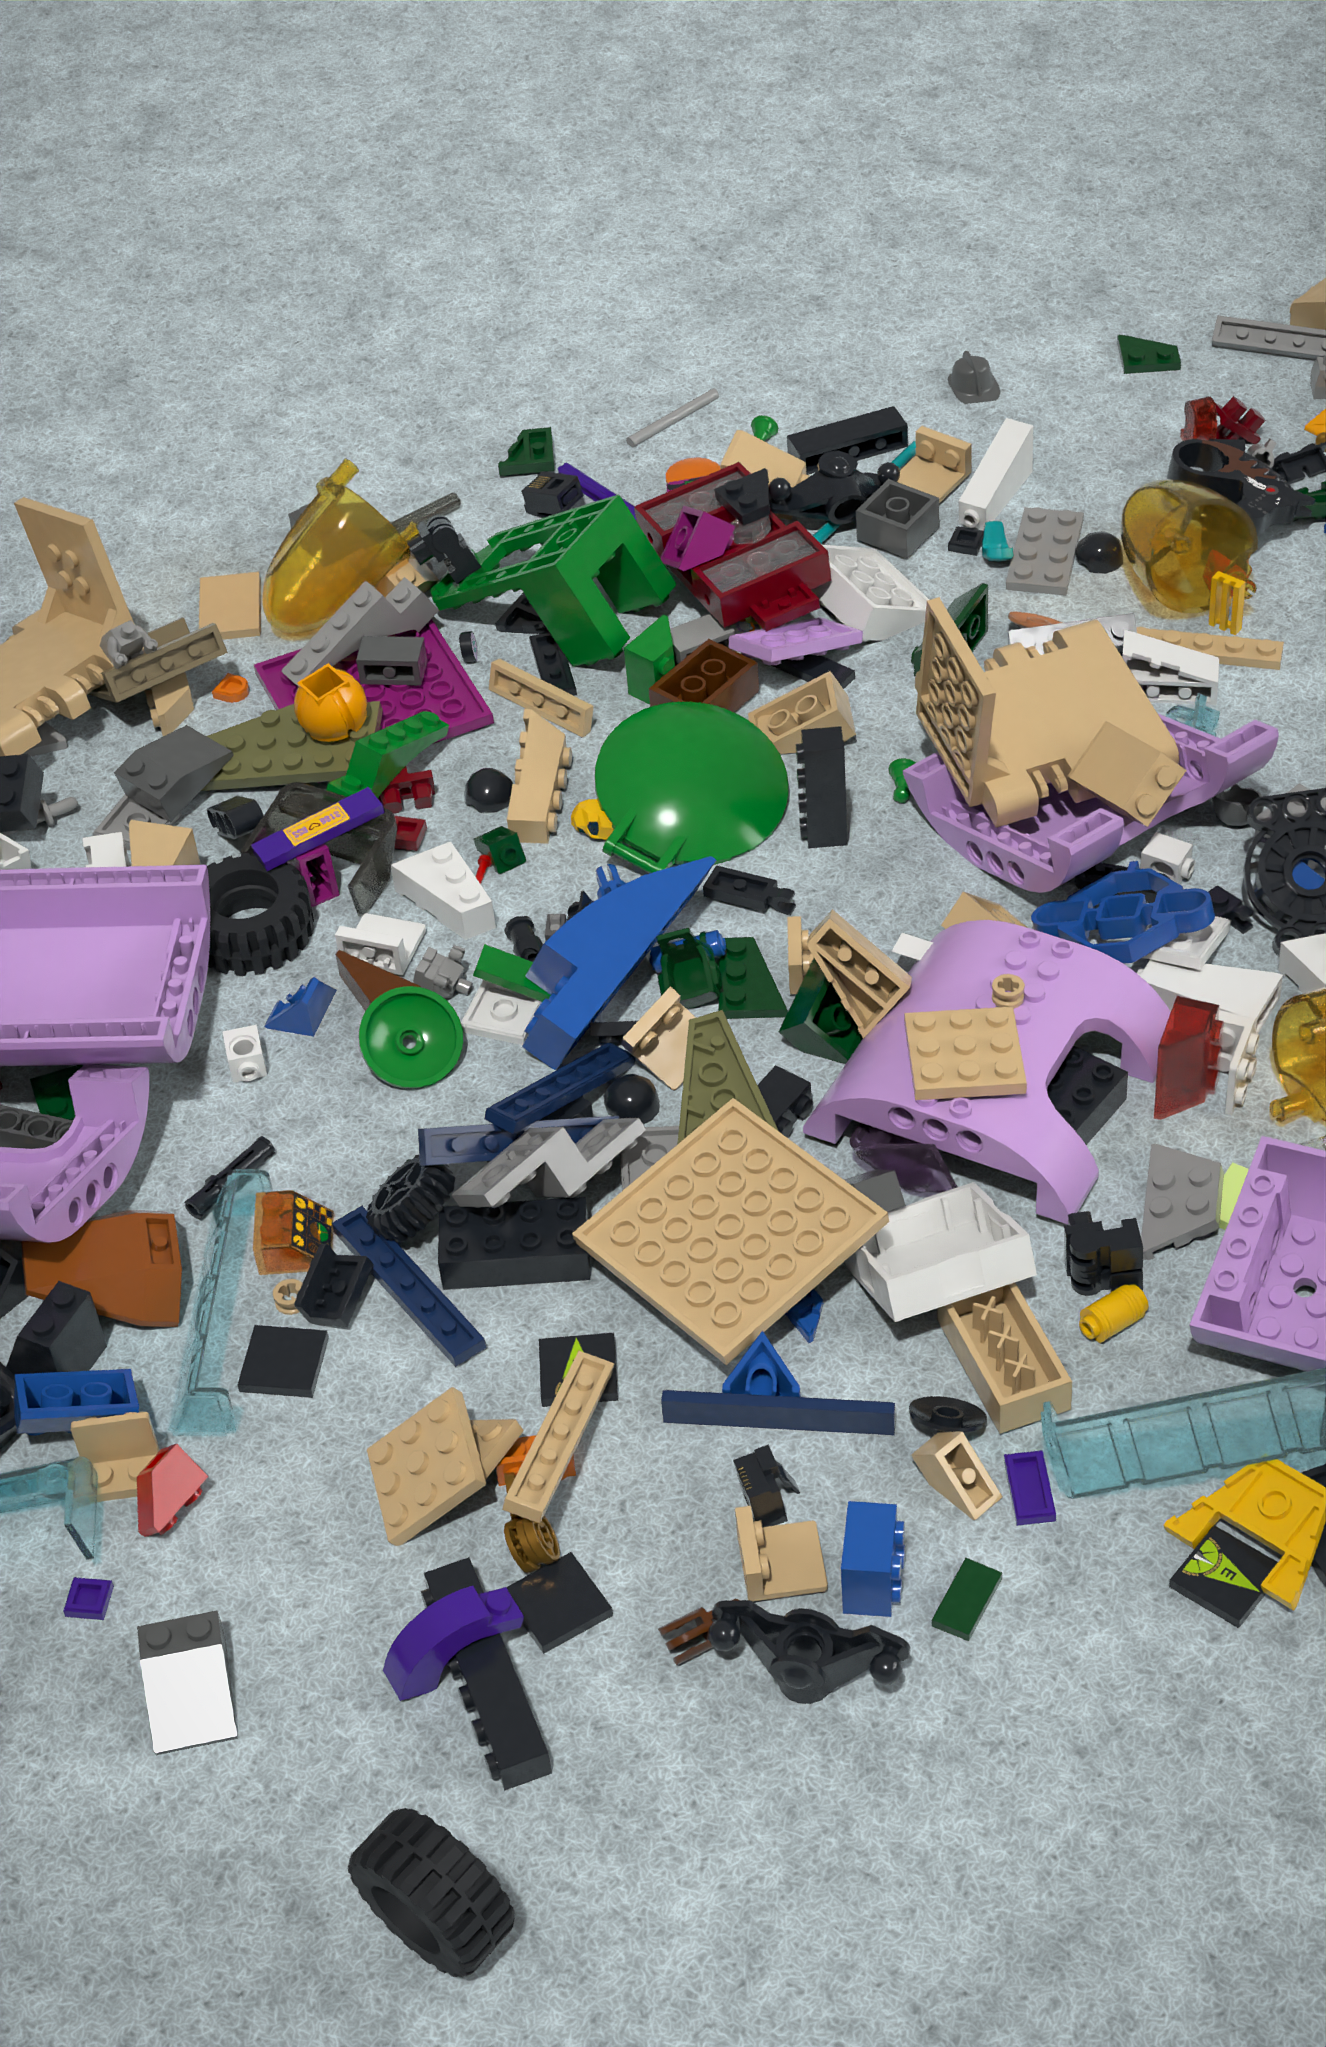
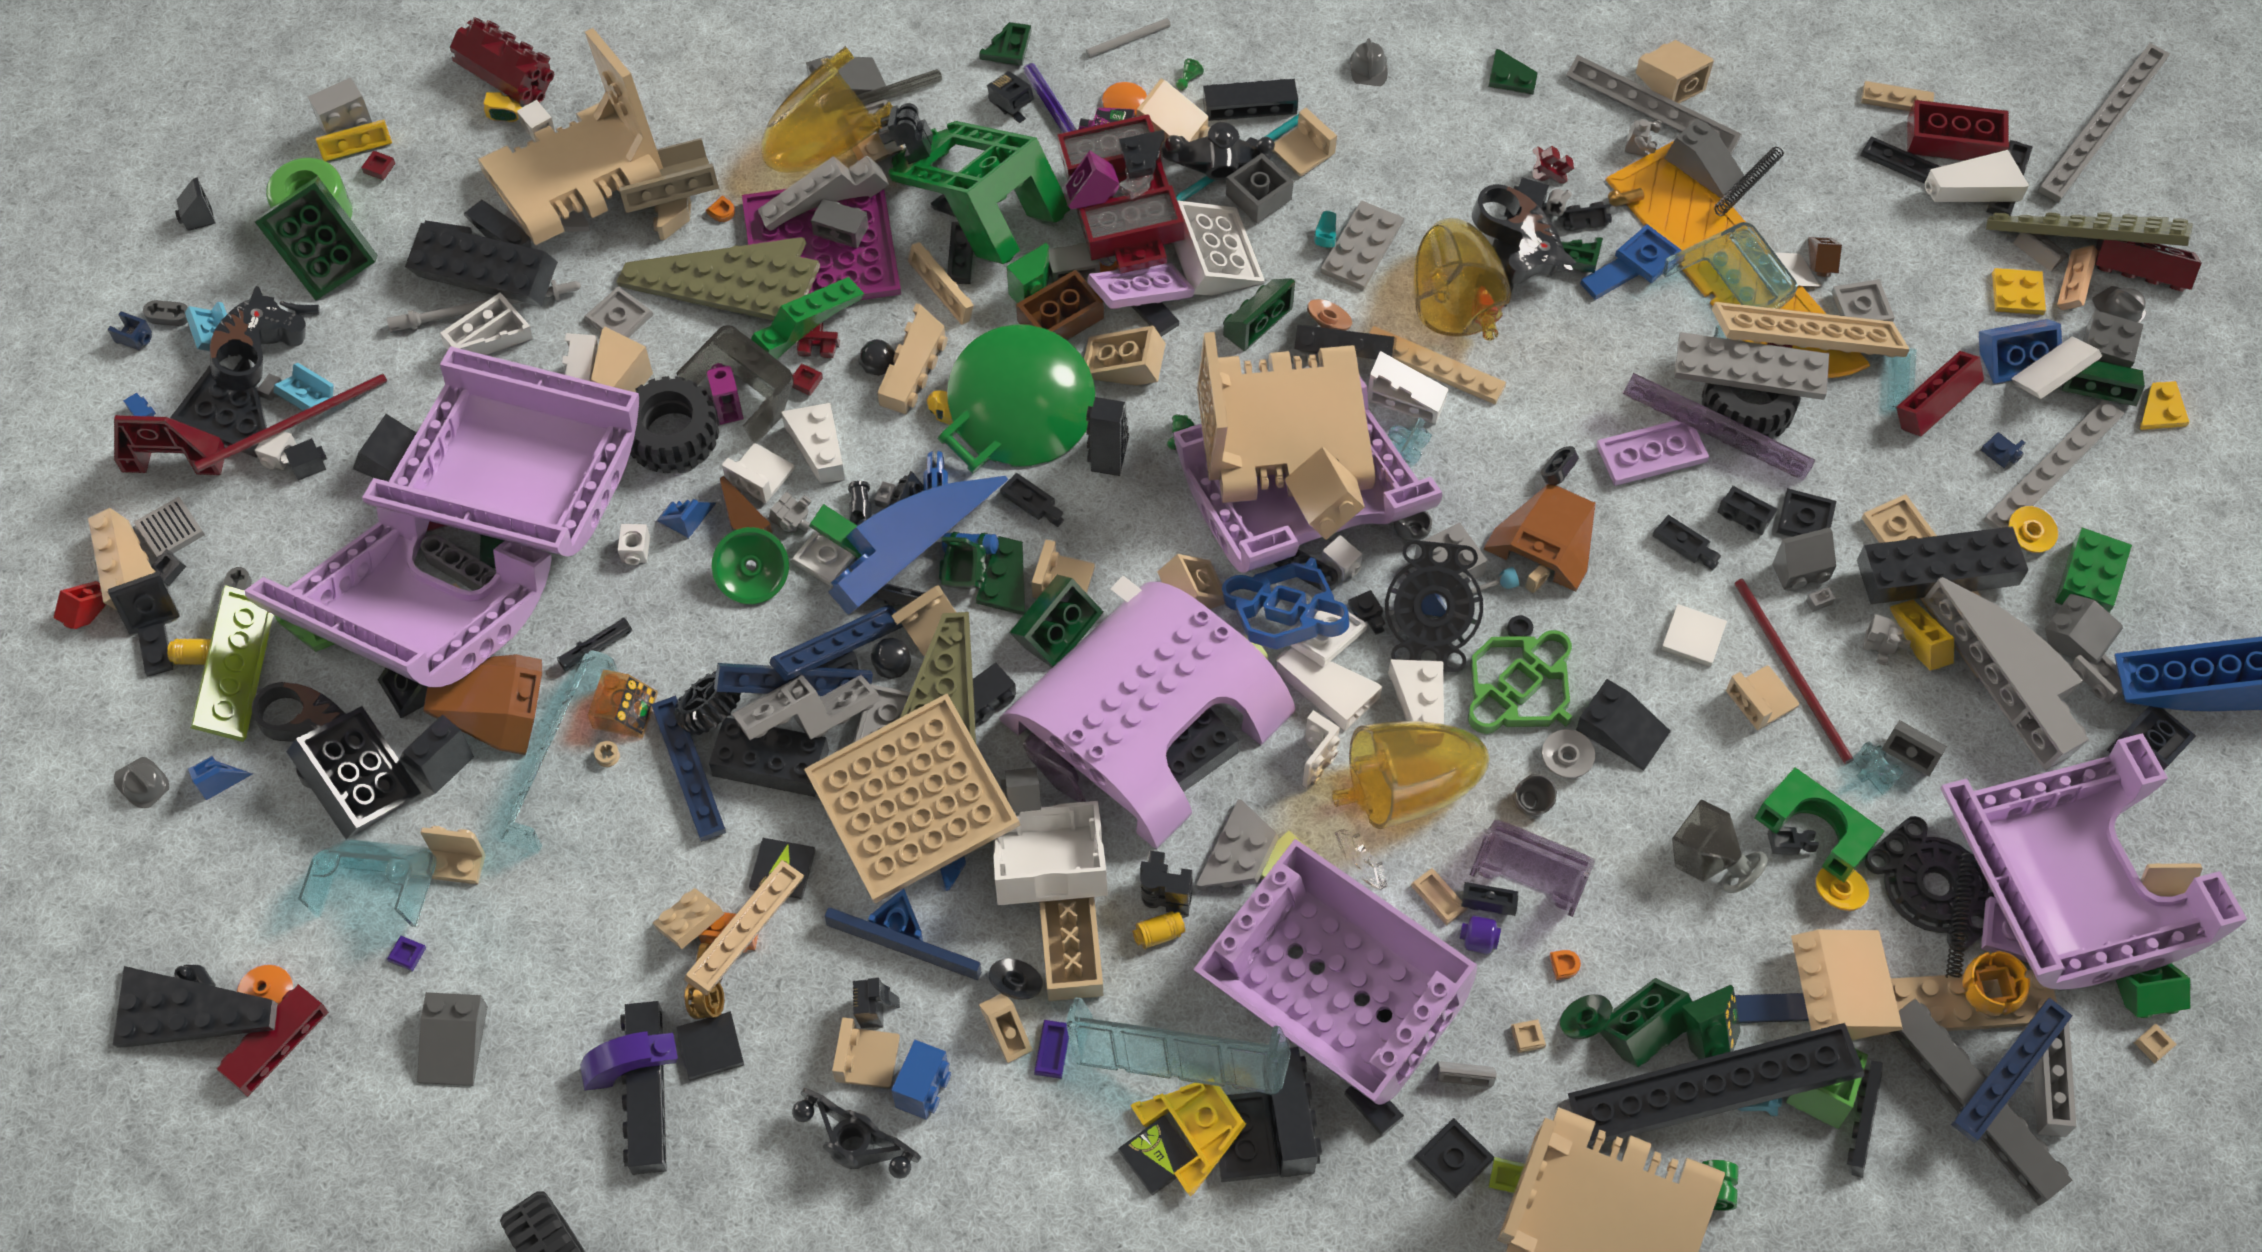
camera: 10 degrees right, 15 degrees up
(57, 1398) = (433, 803): blue slope -> none
(126, 643) = (641, 169): light grey piece -> none
(165, 1487) = (477, 886): slope -> none
(171, 770) = (653, 280): dark grey slope -> none
(232, 604) = (741, 131): tan tile -> none
(235, 816) = (685, 336): black beam -> none
(283, 1361) = (587, 804): black tile -> none
(317, 828) = (733, 373): dark purple tile -> none
(330, 704) = (781, 268): light orange piece -> none
(332, 1287) = (635, 757): black bracket -> none
(425, 1467) = (651, 922): tan plate -> none
(468, 646) = (903, 220): black tile -> none
(484, 861) = (854, 419): red piece -> none
(502, 847) = (868, 412): dark green bracket -> none
(703, 1621) = (793, 1096): reddish brown arm -> none
(858, 971) = (1073, 608): tan wedge -> none
(964, 1053) = (1115, 708): tan plate -> none
(966, 541) = (1306, 219): black tile -> none
(966, 1599) = (979, 1122): dark green tile -> none
(998, 475) = (1349, 168): white slope -> none
(1011, 983) = (1159, 659): tan bush -> none
(1100, 552) = (1400, 259): black hair -> none
(1187, 1057) = (1281, 742): clear red slope -> none
(1200, 419) = (1521, 158): clear red leg -> none
(1221, 601) = (1469, 338): yellow tile -> none

